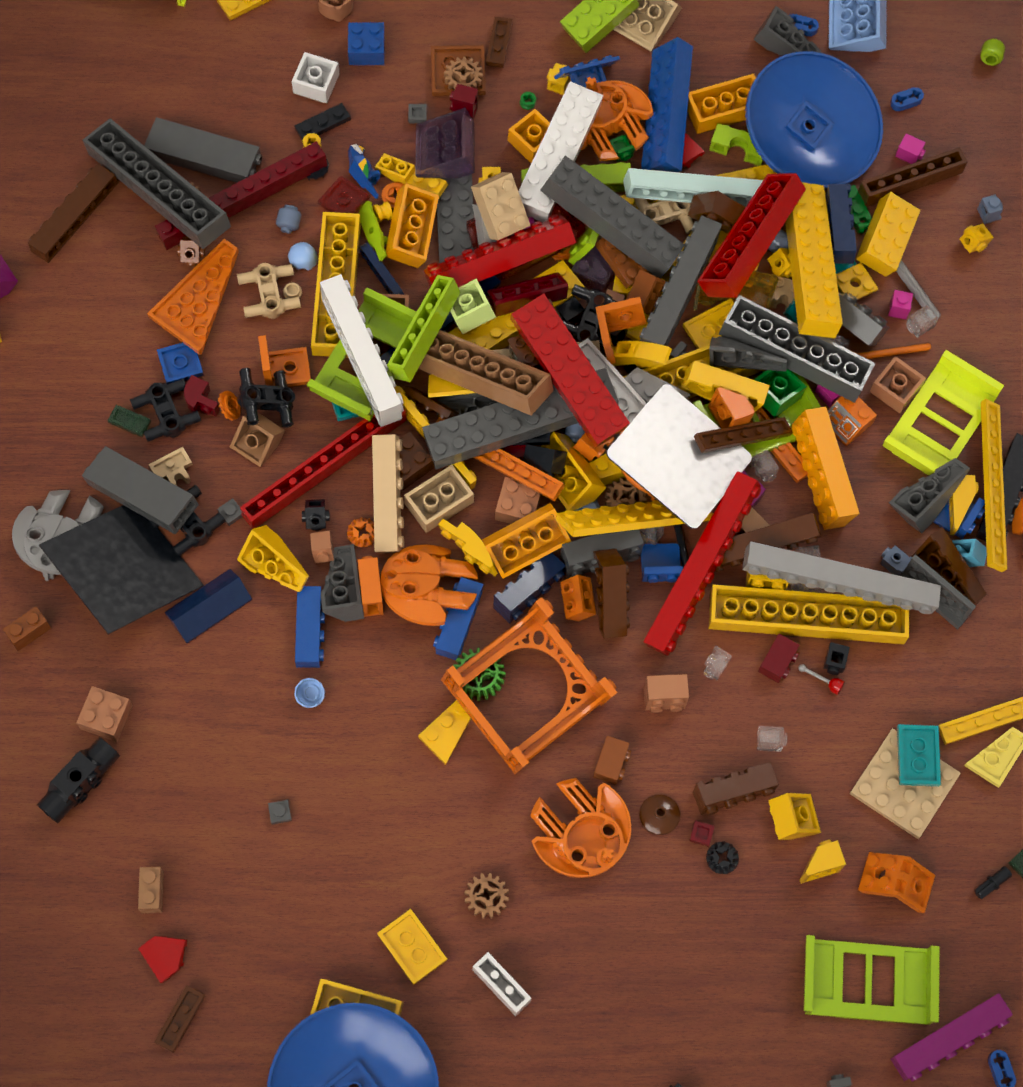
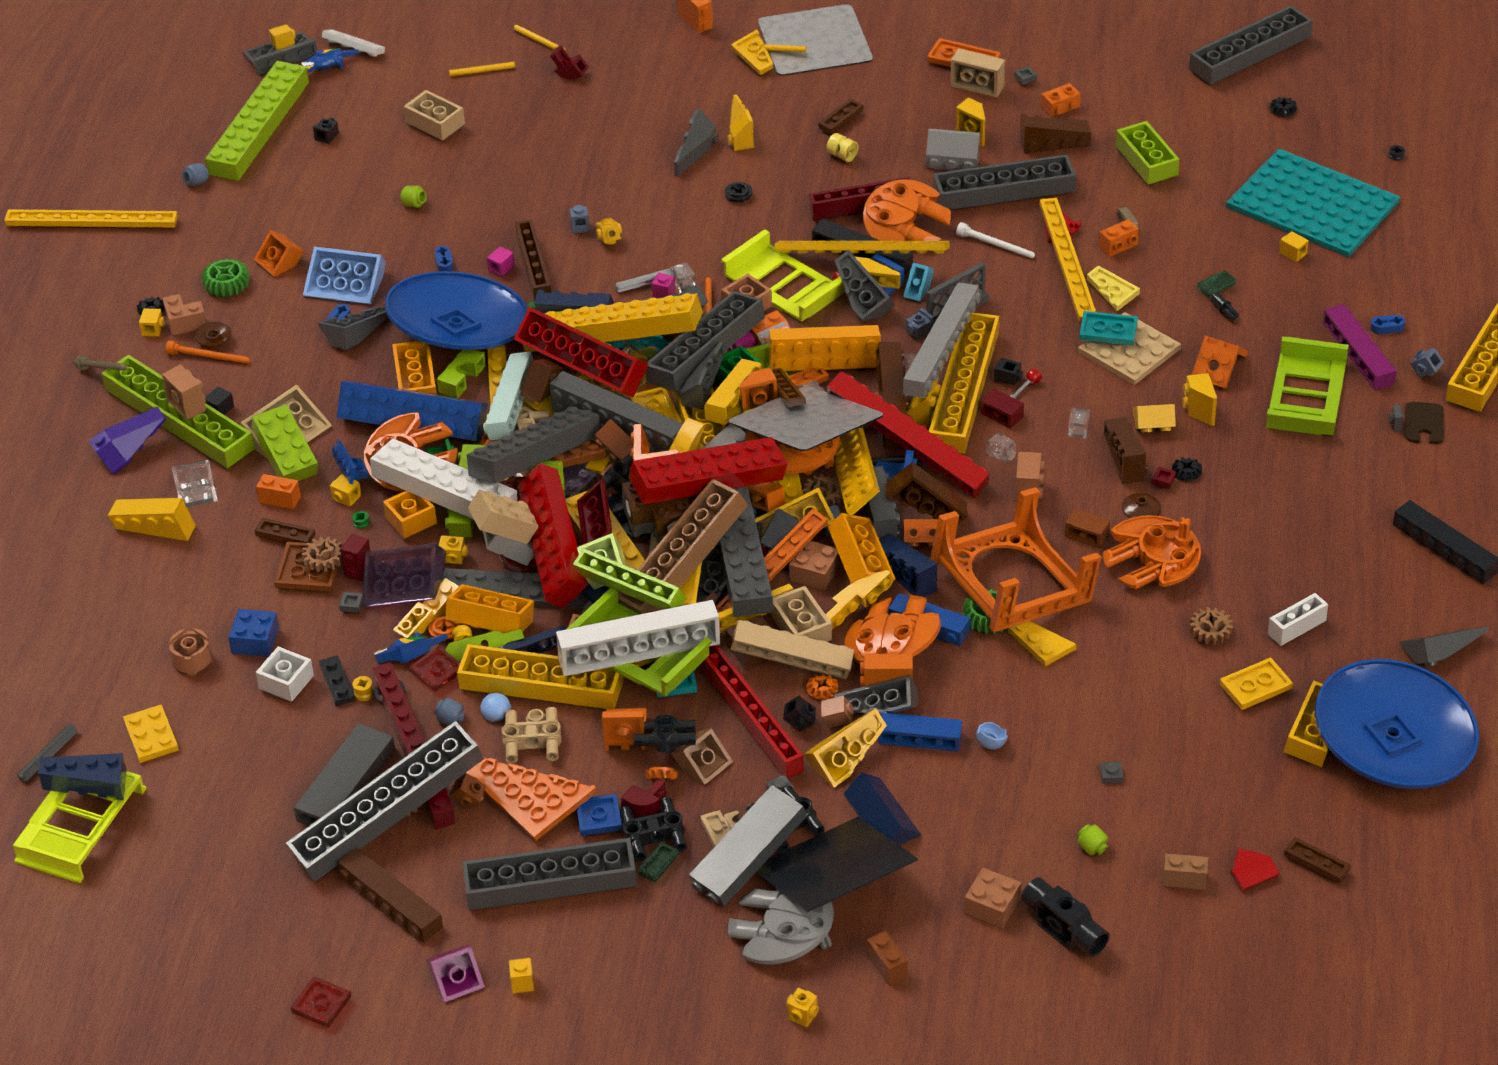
camera: 75 degrees left, 25 degrees down
(100, 333) = (549, 873): none -> dark grey brick
(185, 799) = (1092, 839): none -> lime head
(548, 23) = (278, 491): none -> orange brick
(888, 234) = (586, 278): yellow brick -> none
(945, 559) = (916, 288): reddish brown wedge -> none

